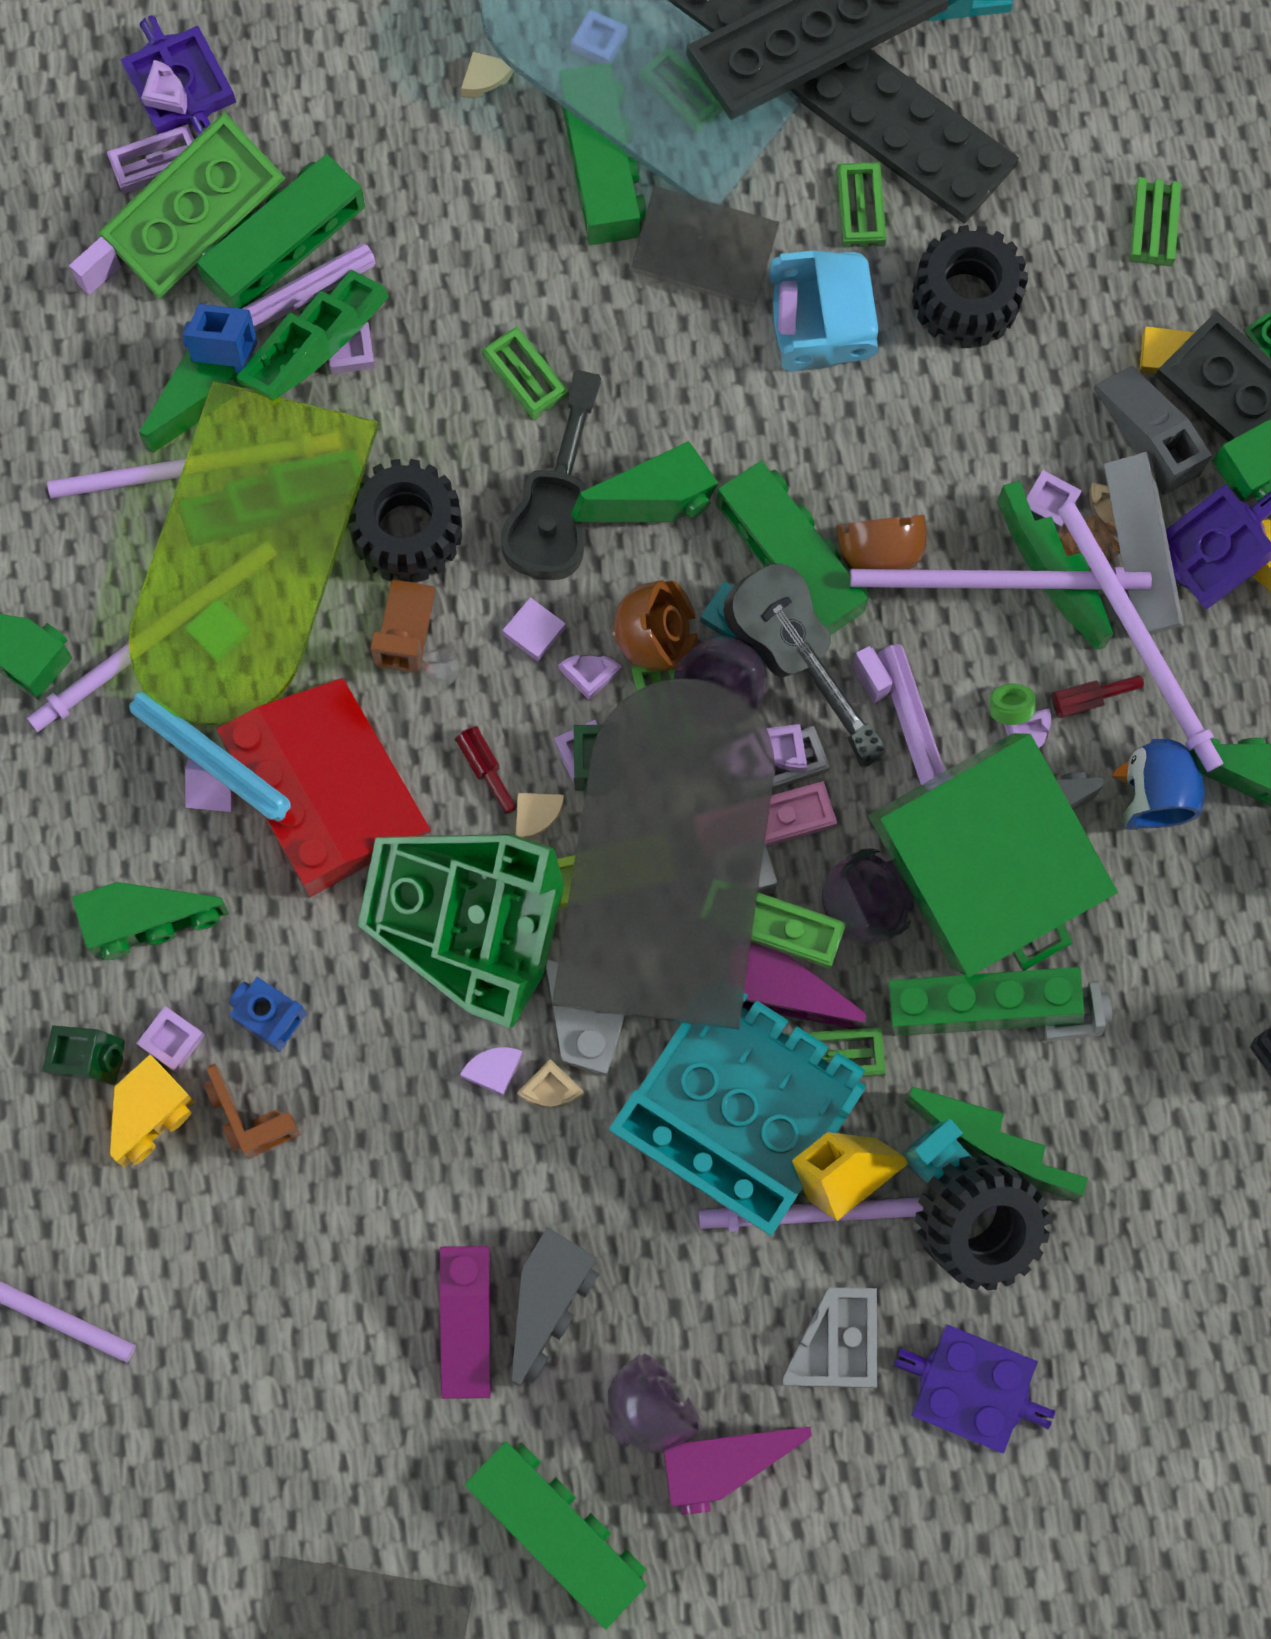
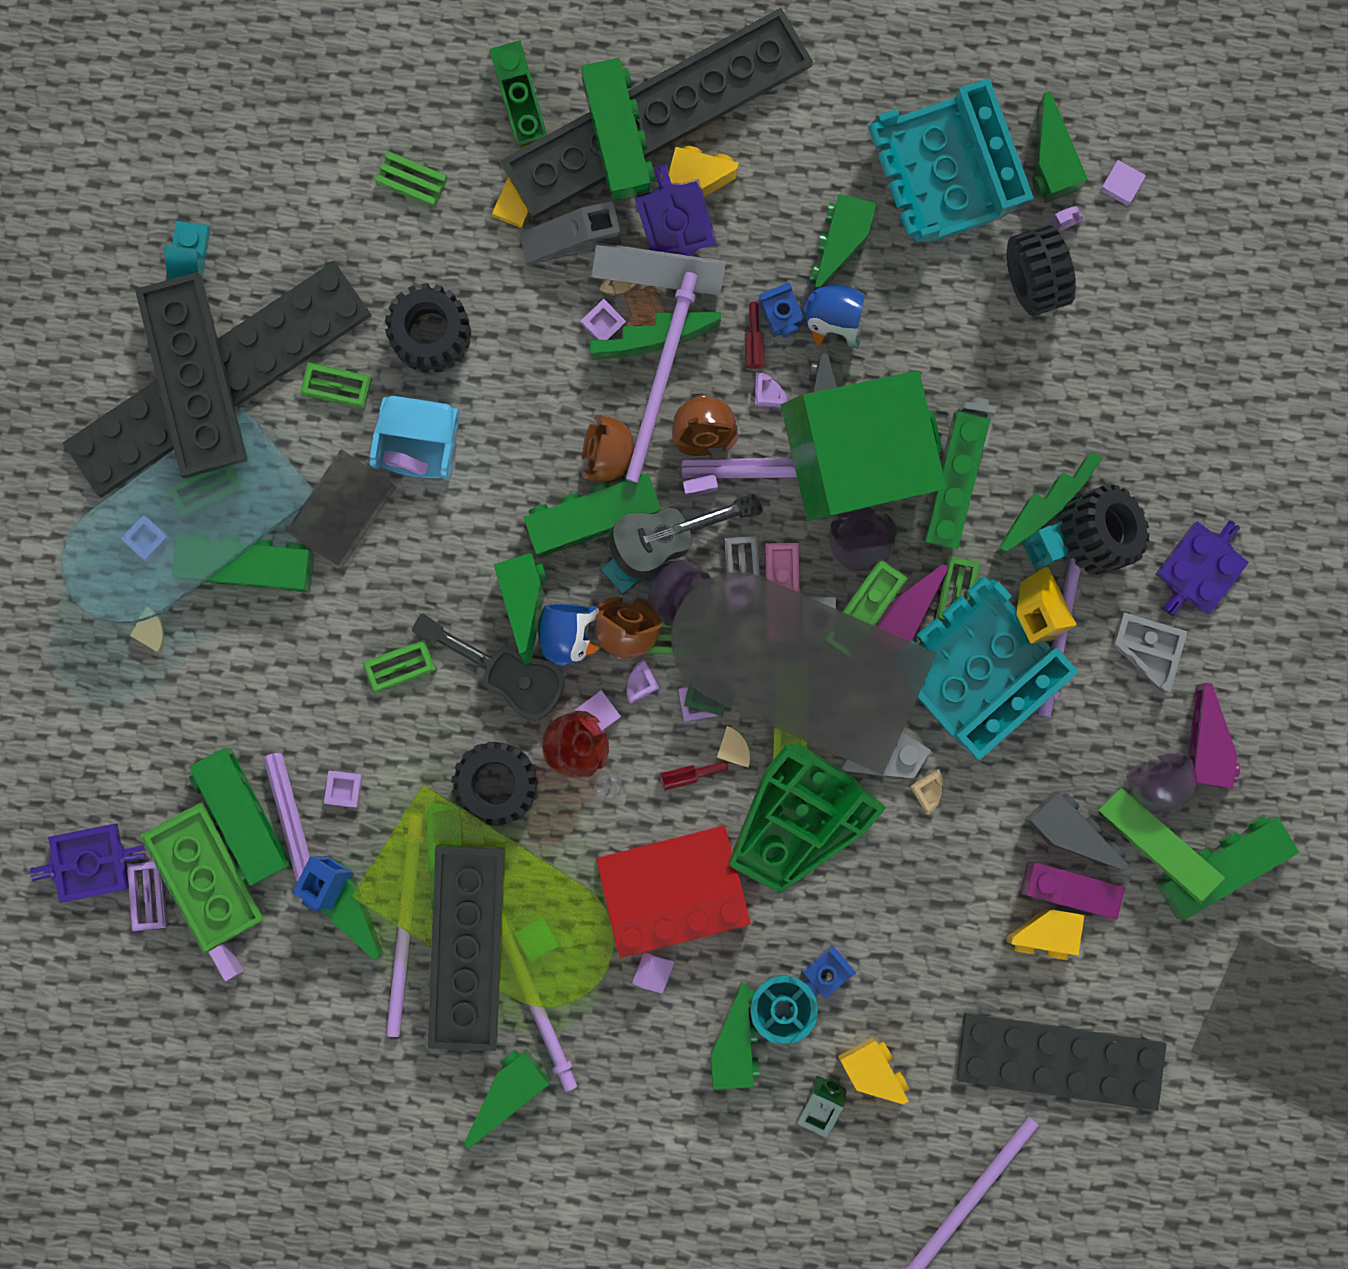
camera: 70 degrees left, 10 degrees up
(164, 89) = (97, 875): lavender tile -> none
(170, 1039) = (826, 1043): lavender tile -> none
(182, 533) = (466, 947): none -> pearl dark grey plate
(200, 959) = (783, 1009): none -> teal cylinder
(211, 757) = (640, 966): medium azure axle -> none
(222, 1372) = (1061, 1061): none -> pearl dark grey plate
(268, 1130) = (909, 990): dark orange bracket -> none
(312, 338) = (334, 813): green slope -> none
(400, 1303) = (1051, 931): none -> yellow slope
(404, 627) = (571, 804): dark orange bracket -> none
(483, 603) = (575, 745): none -> clear red cylinder
(493, 1068) = (906, 826): lavender tile -> none
(560, 1425) = (1161, 845): none -> bright green tile
(626, 555) = (564, 632): none -> blue piece
(788, 748) = (737, 560): lavender tile -> none
(956, 647) = (704, 425): none -> dark orange cylinder
(1012, 704) = (747, 396): bright green tile -> none
(1128, 729) = (781, 324): none -> blue brick
(1197, 737) = (814, 278): lavender bar -> none

